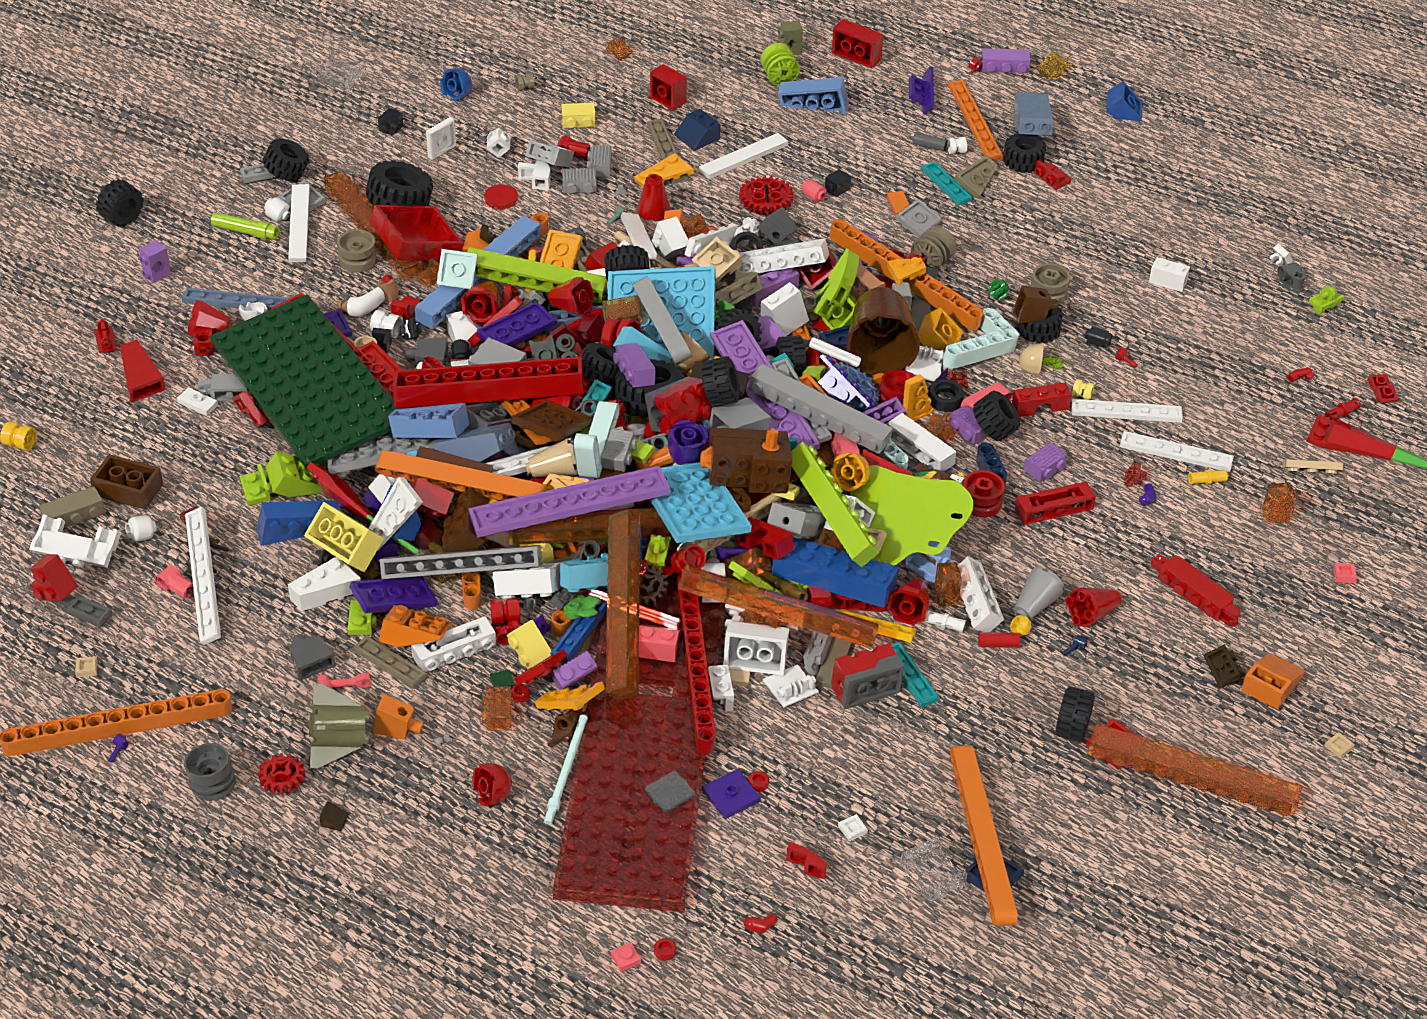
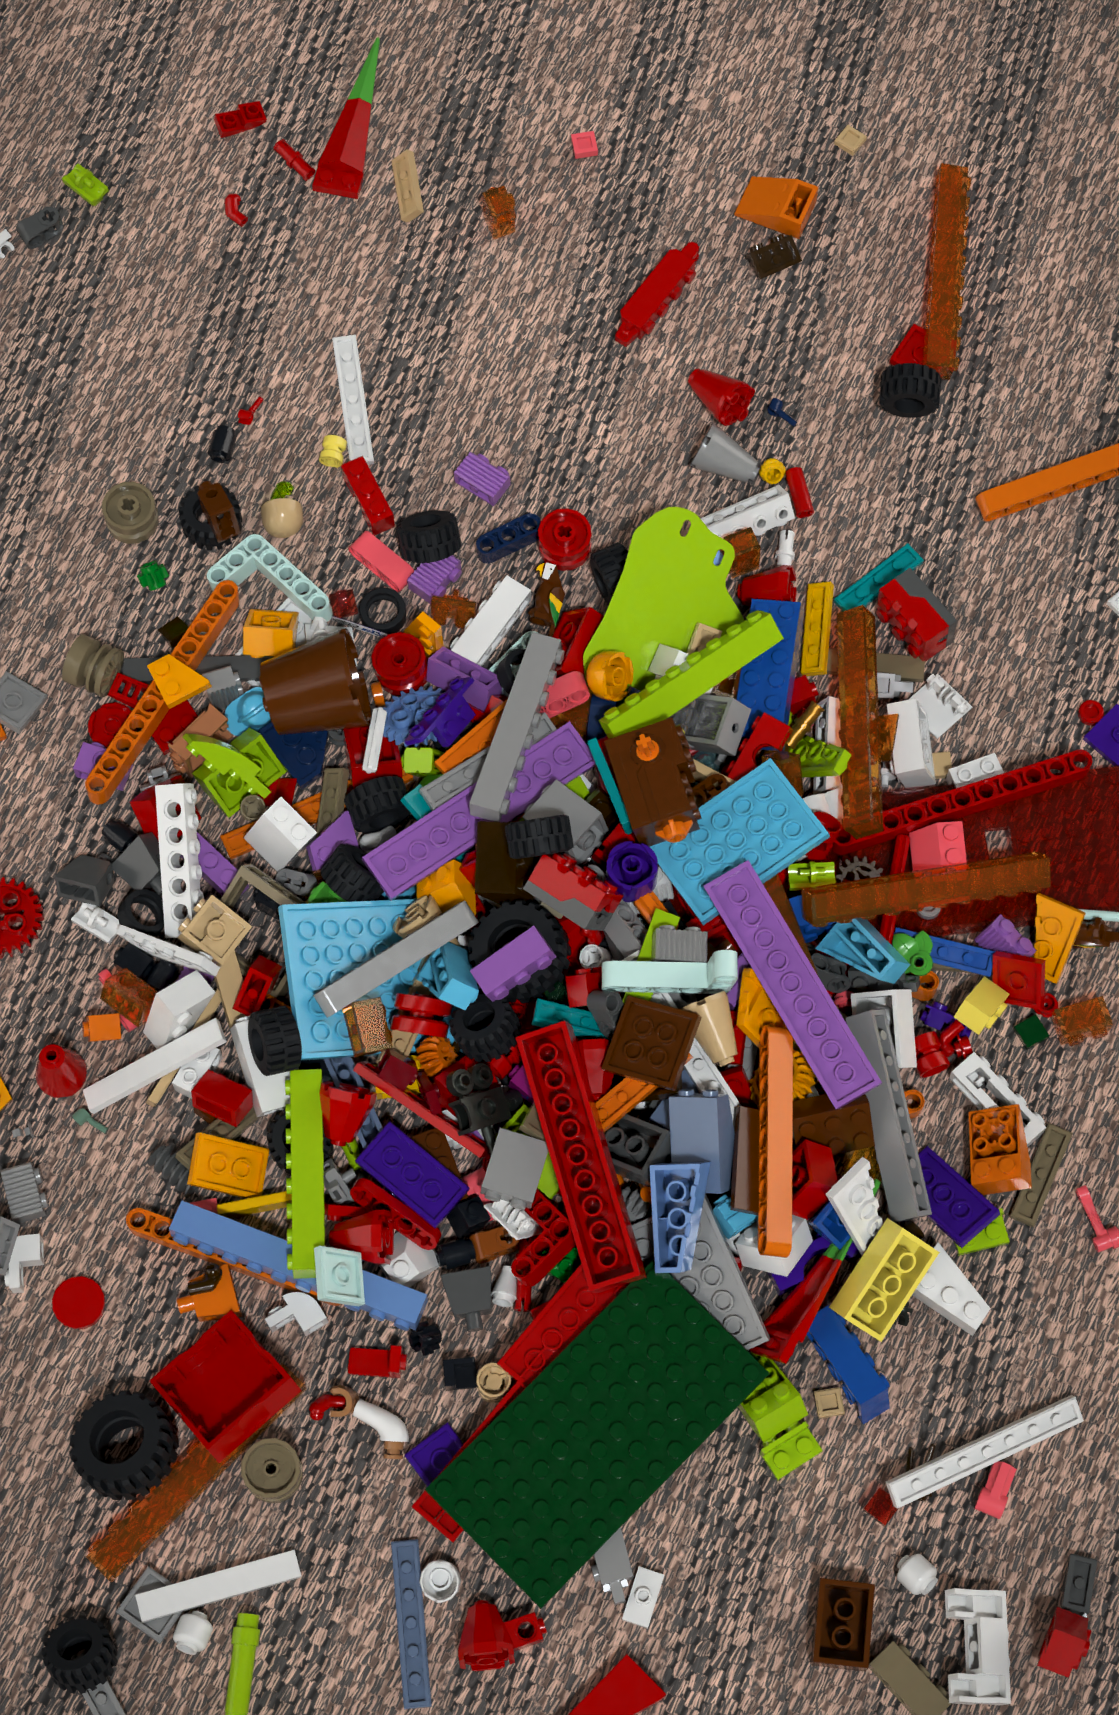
camera: 100 degrees left, 25 degrees up
(245, 403) = (655, 1508): red plate -> none
(310, 656) = (1069, 1272): dark grey torso -> none
(384, 320) = (423, 1375): white wheel -> none
(429, 276) = (289, 1350): clear orange bracket -> none
(1055, 502) = (537, 428): red brick -> none
(1134, 475) = (479, 377): clear red tile -> none
(1149, 495) = (506, 358): dark purple arm -> none
(1169, 274) = (73, 371): white brick -> none
(1176, 451) = (415, 338): white tile -> none
(1207, 477) = (457, 298): yellow pin -> none

